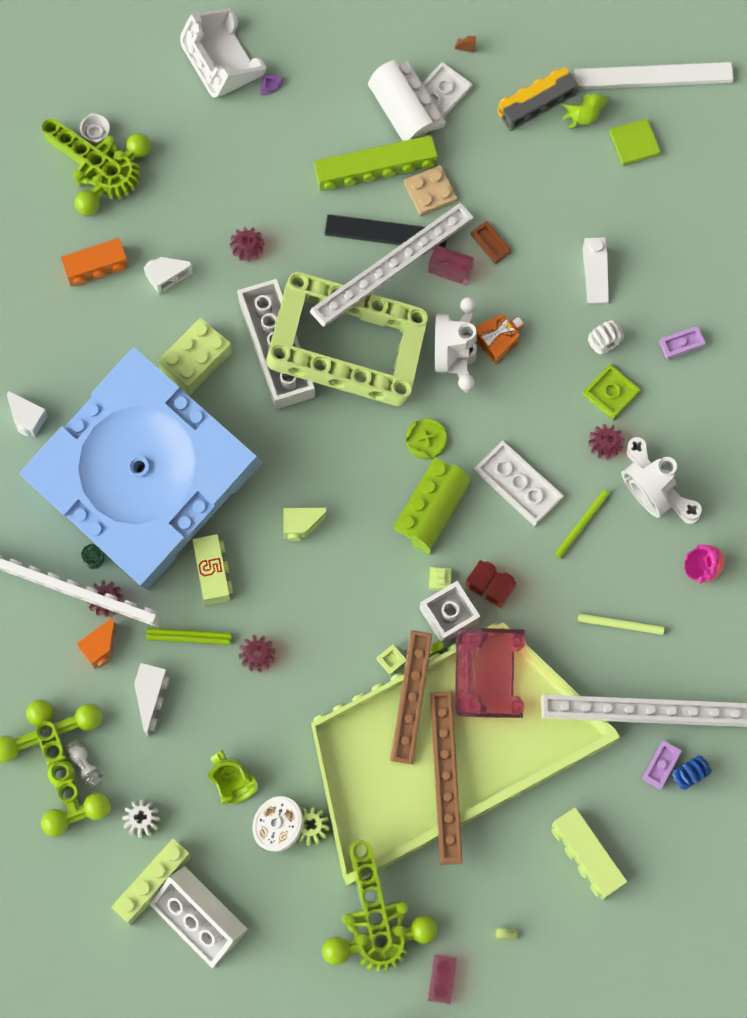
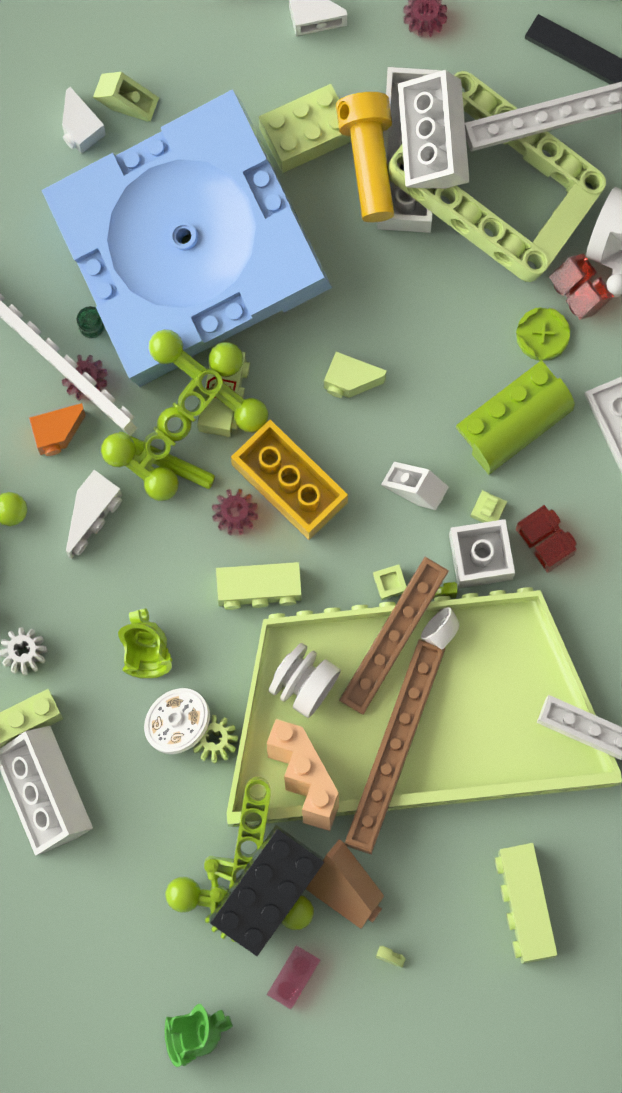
camera: 25 degrees right, 5 degrees up
(51, 382) = (125, 96): none -> yellowish green slope
(206, 545) = (224, 361): none -> lime piece
(237, 334) = (364, 119): none -> yellow piece
(287, 614) = (289, 479): none -> yellow brick
(291, 322) = (433, 131): none -> white slope
(296, 700) = (258, 585): none -> yellowish green brick
(360, 755) = (304, 680): none -> white wheel
(380, 582) = (415, 485): none -> white slope
(390, 823) = (304, 773): none -> light nougat brick
(398, 921) = (266, 890): none -> black brick
(443, 678) = (441, 628): none -> white hat
(445, 401) = (573, 281): none -> clear red piece
(454, 895) = (346, 886): none -> medium nougat slope
(487, 672) = (495, 643): clear pink windscreen -> none

